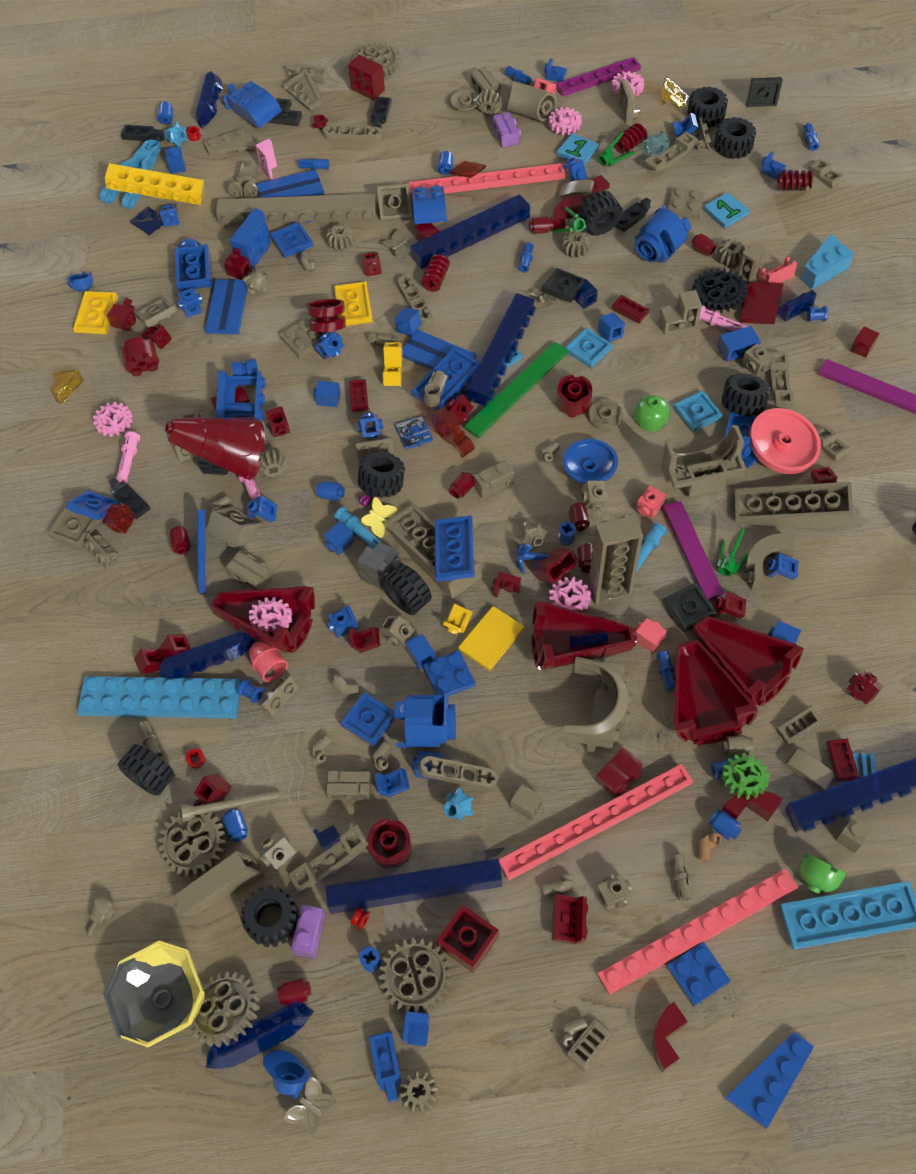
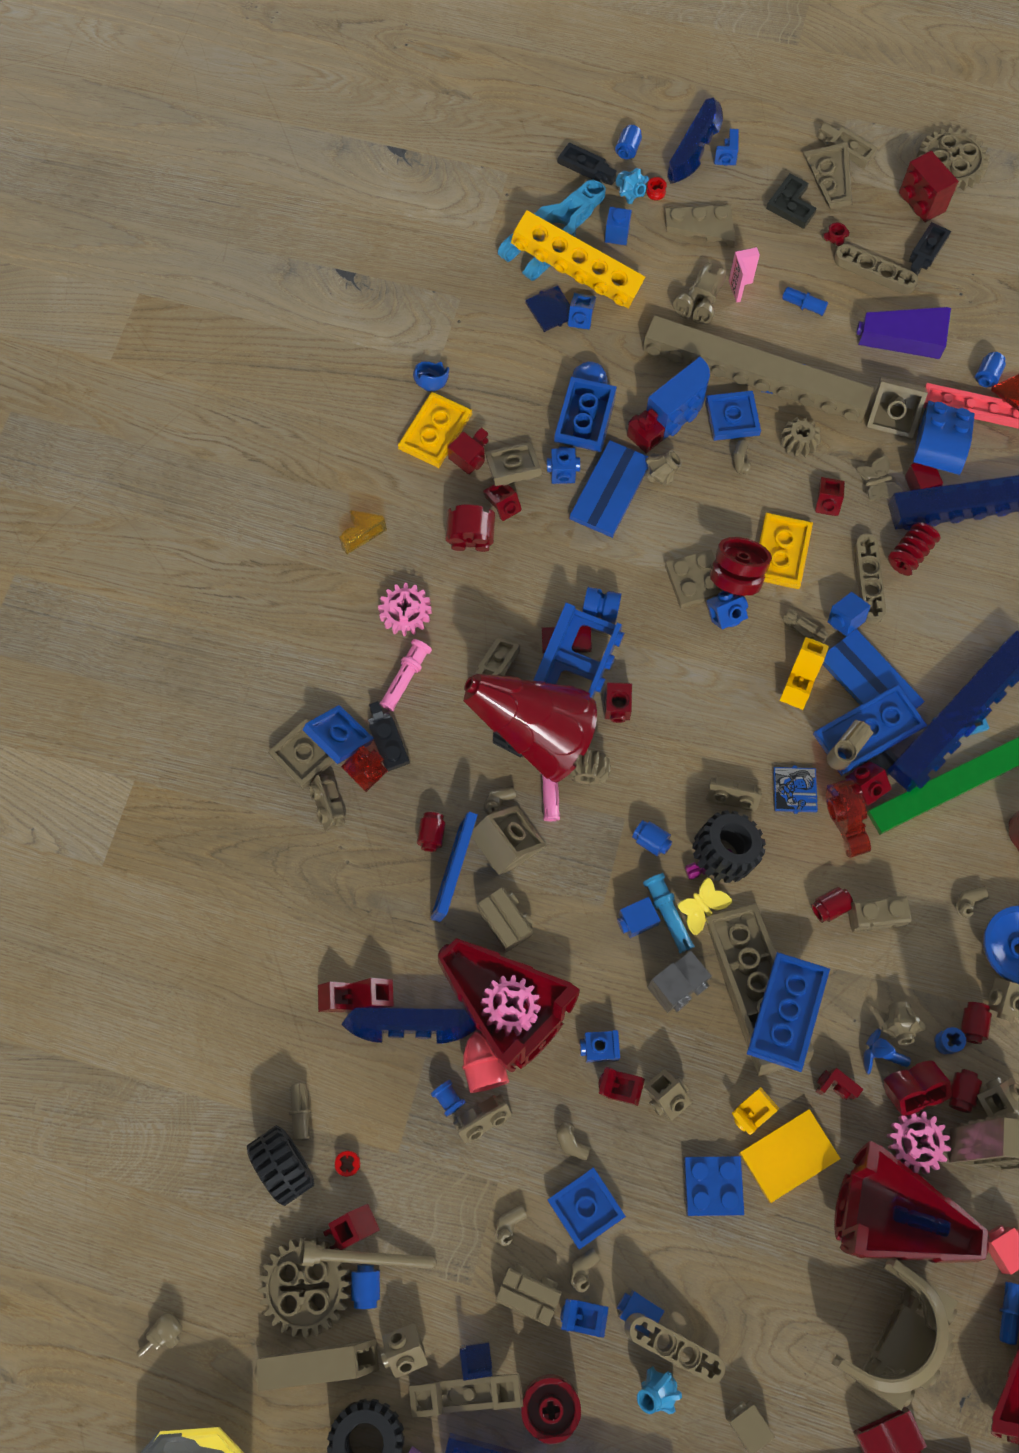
camera: 20 degrees right, 10 degrees up
(159, 697) = (333, 1054): dark azure plate -> none
(254, 104) = (756, 175): blue brick -> none
(263, 508) = (552, 829): blue bracket -> none
(291, 186) = (761, 328): blue tile -> none
(327, 393) = (698, 684): blue brick -> none
(358, 395) = (740, 702): dark red plate -> none
(370, 432) = (740, 760): blue brick -> none
(384, 159) = (907, 331): none -> dark purple slope
(406, 589) = (702, 1043): black tyre -> none
(420, 650) = (688, 1136): blue brick -> none
(427, 720) = (661, 1259): blue piece -> none

